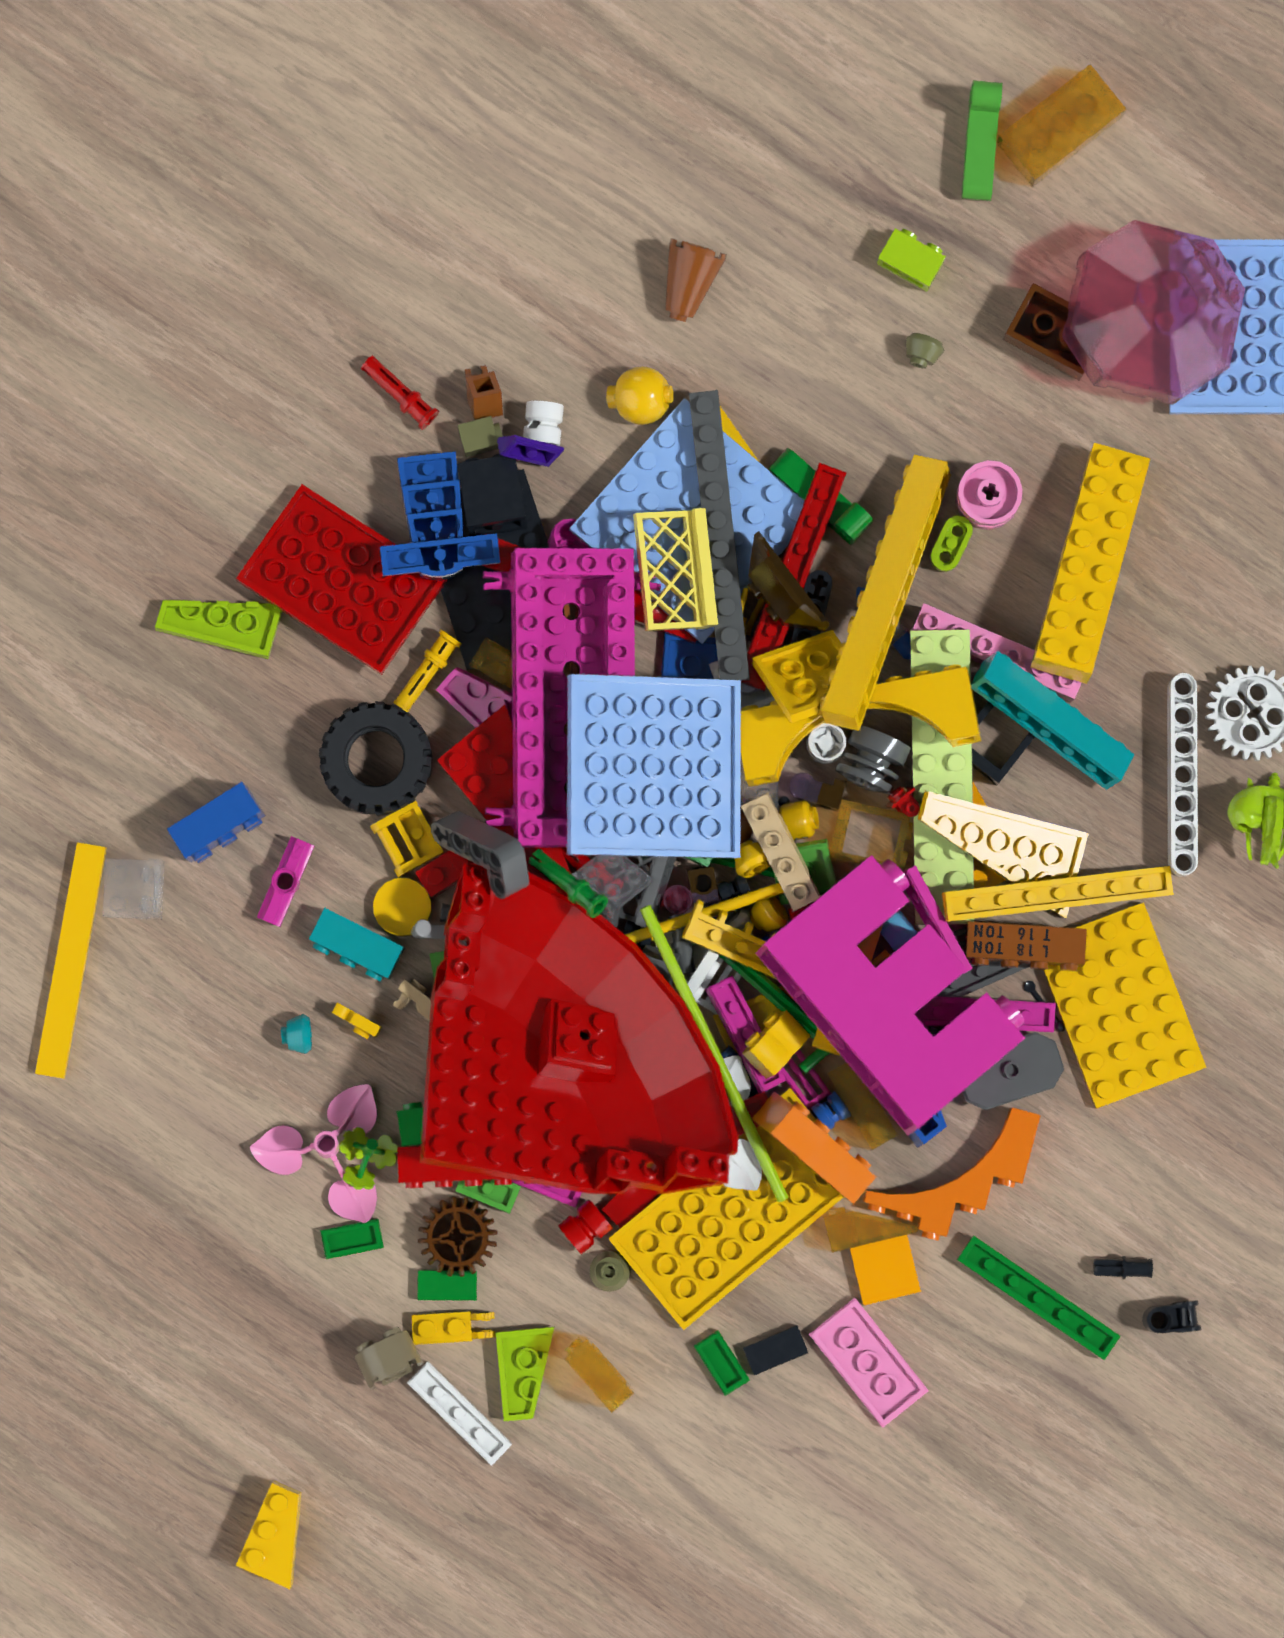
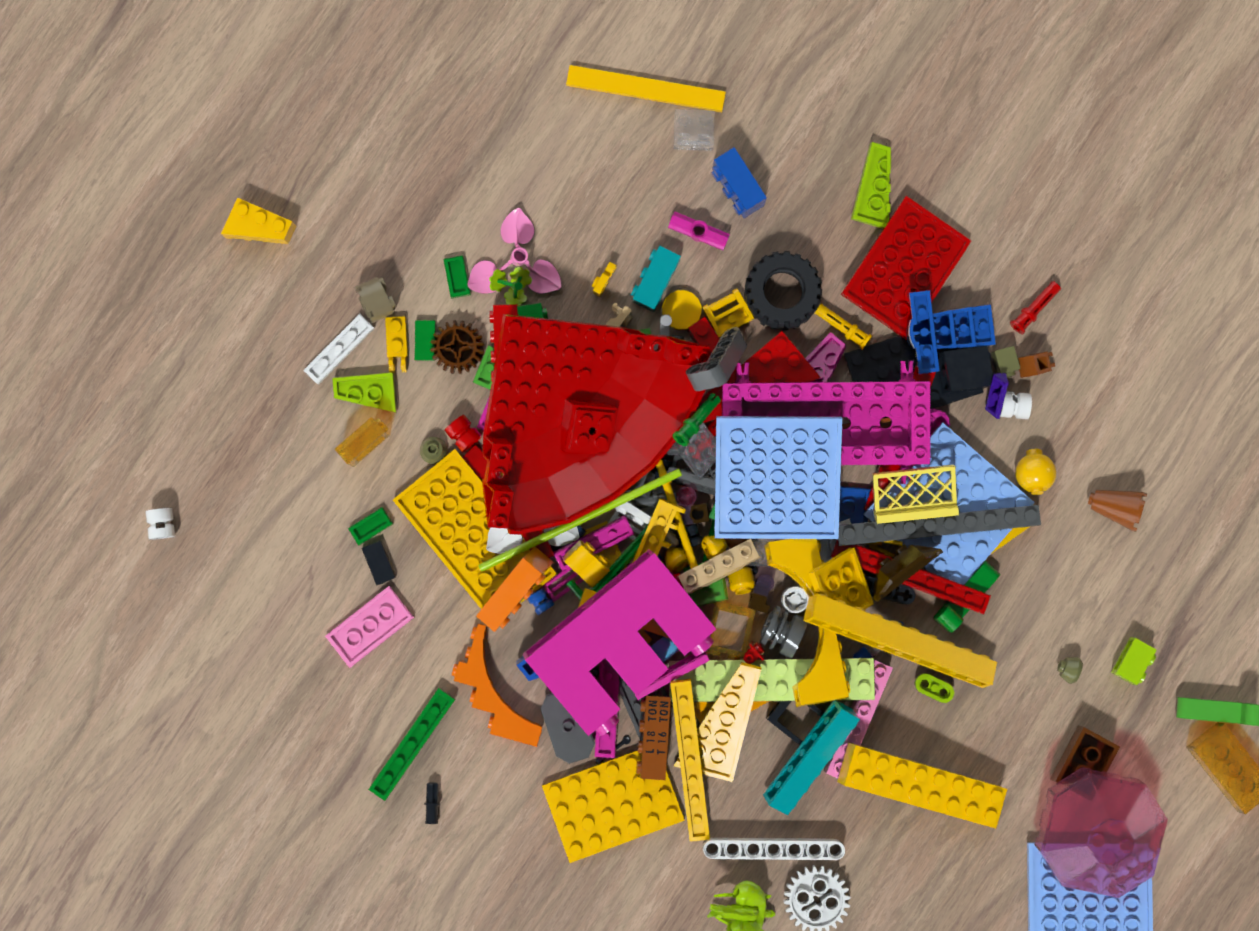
camera: 90 degrees right, 0 degrees up
(298, 1034) = (595, 239): teal cone -> none
(494, 661) = (850, 370): clear yellow hinge -> none
(857, 1229) = (460, 618): clear yellow slope -> none
(862, 1106) = (543, 623): clear yellow brick -> none
(885, 1270) = (432, 638): light orange tile -> none
(993, 478) = (980, 718): bright pink wheel -> none
(1178, 1317) = (397, 842): black piece -> none

